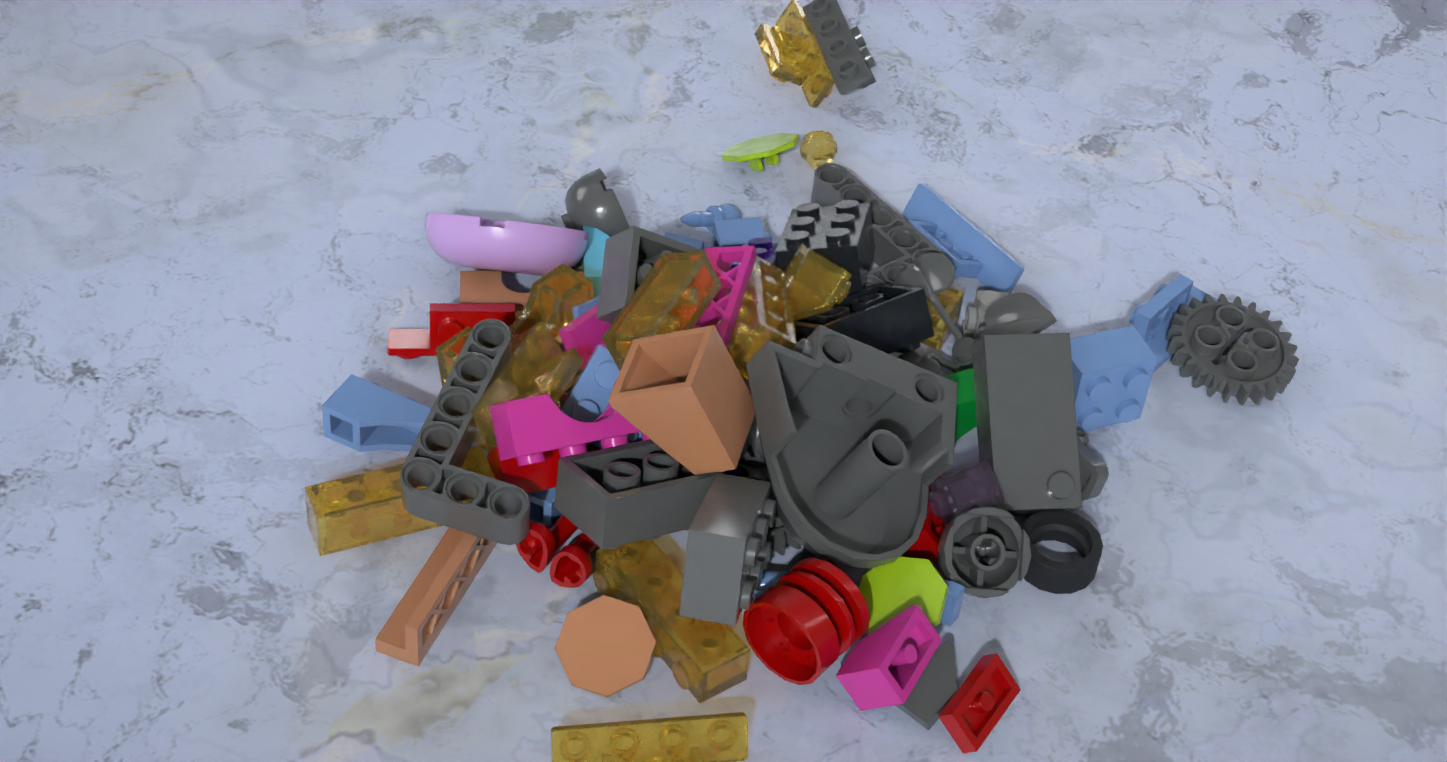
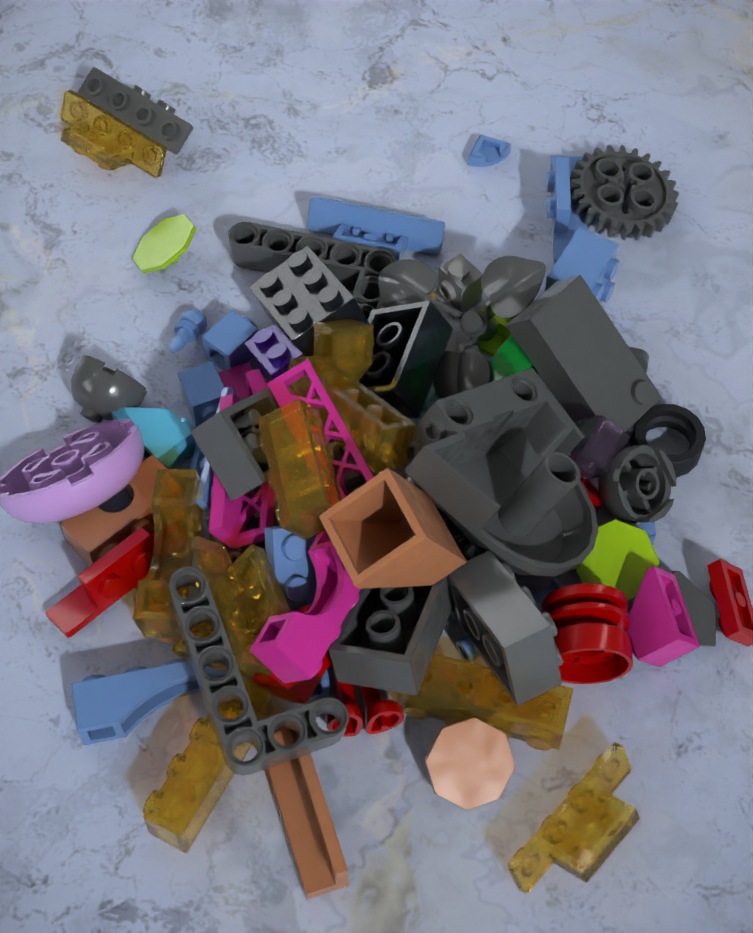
camera: 35 degrees left, 15 degrees up
(818, 148) = (204, 215): clear yellow plate -> none
(1136, 252) = (488, 151): none -> medium blue tile

